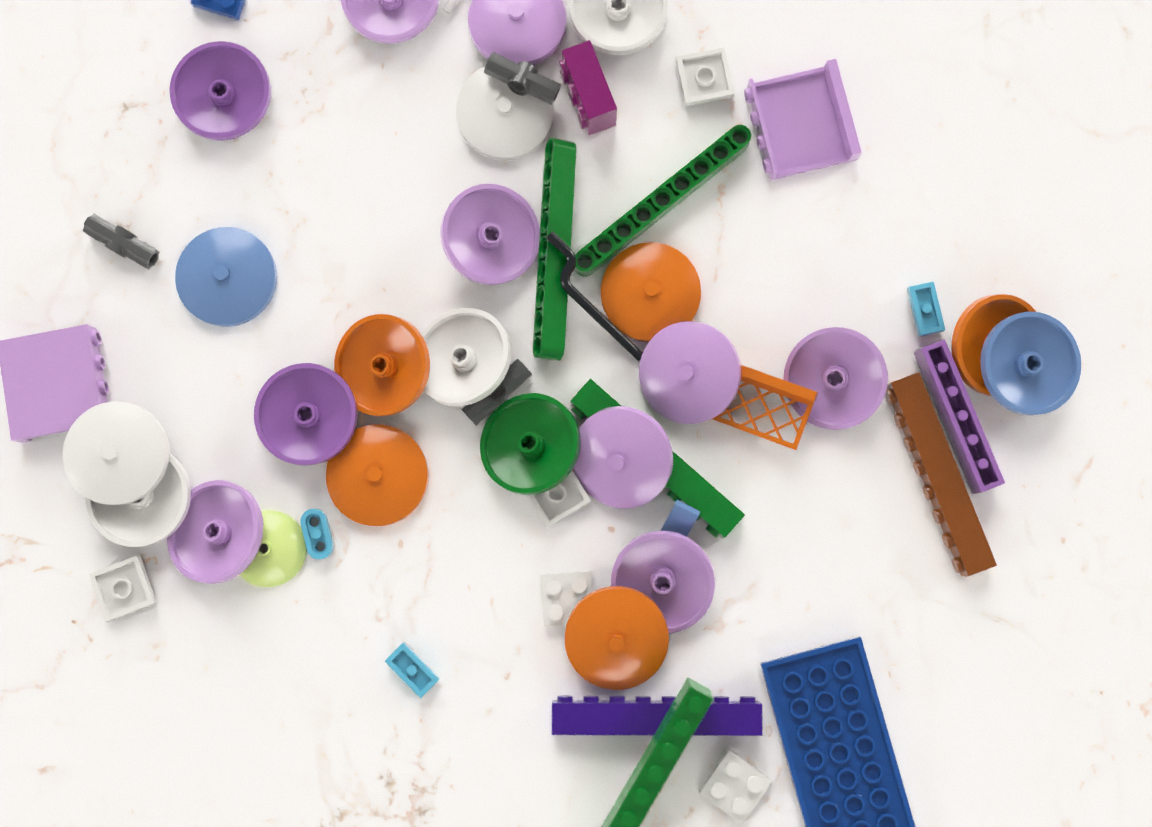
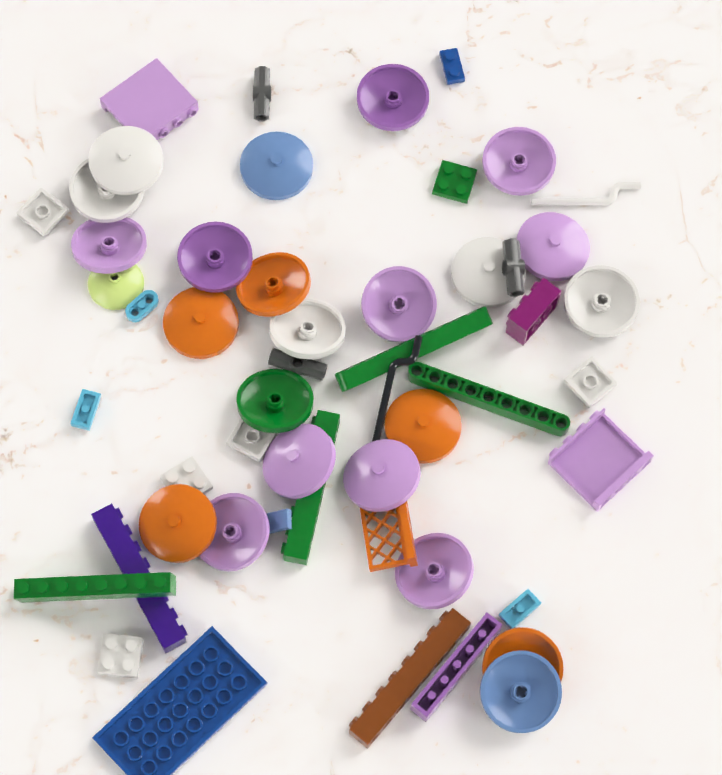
camera: 55 degrees right, 15 degrees down
(369, 83) = (454, 181): none -> green plate

